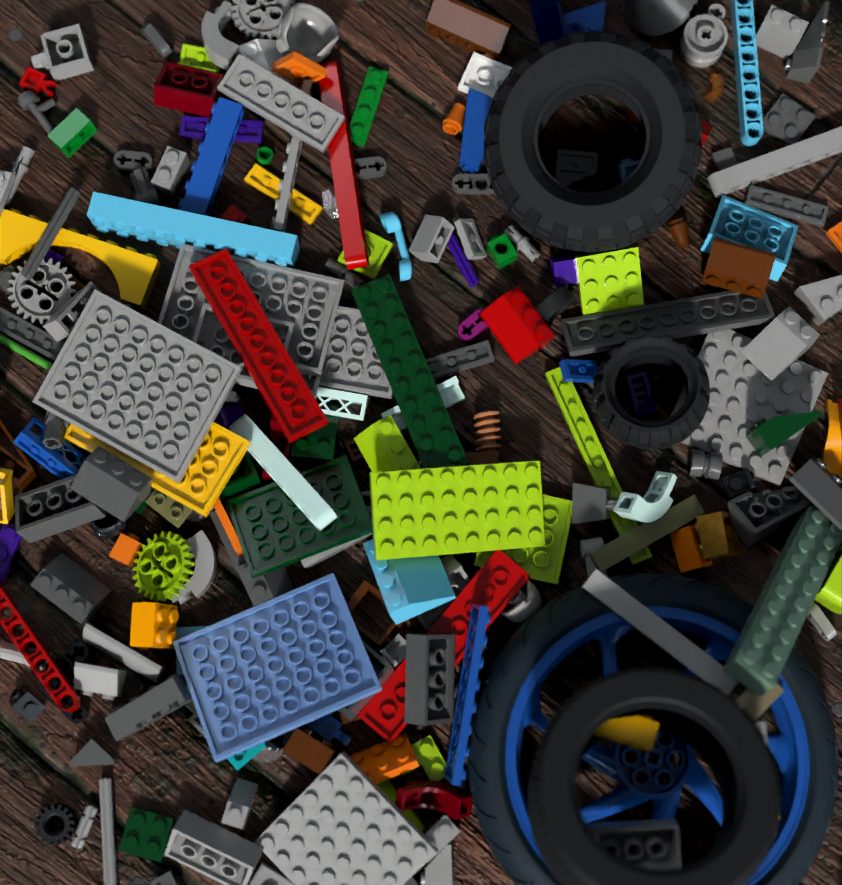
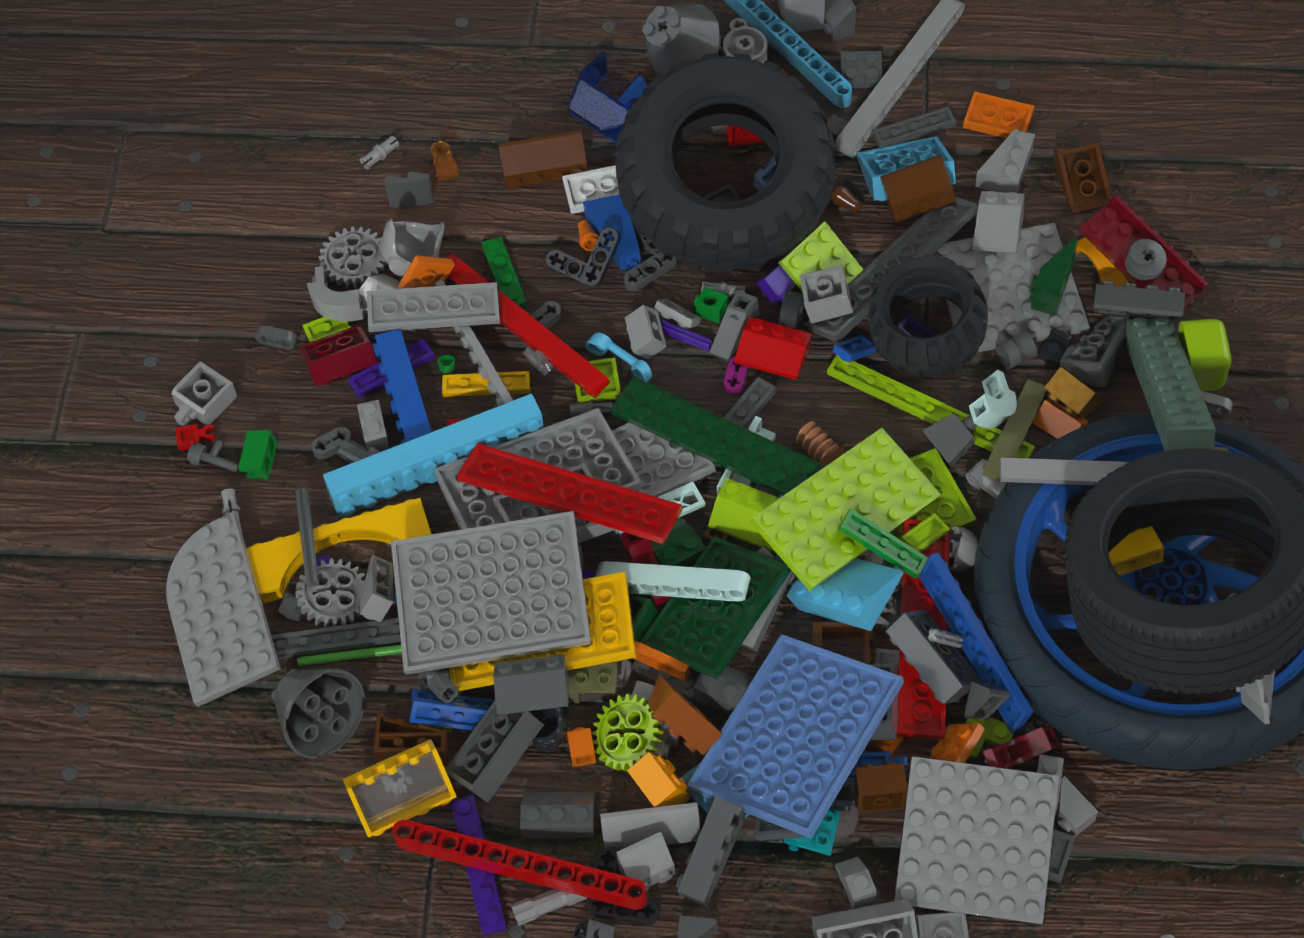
camera: 30 degrees left, 20 degrees down
(208, 587) = (682, 717): none -> dark orange slope
(432, 148) = (587, 268): none -> black beam
(439, 741) = (984, 700): none -> dark grey slope
(445, 674) = (945, 638): none -> light grey axle
(459, 561) = (883, 543): none -> green plate
(502, 573) = (926, 533): none -> lime tile
(513, 275) = (733, 323): none -> dark grey slope
(590, 310) = (826, 294): none -> light grey slope

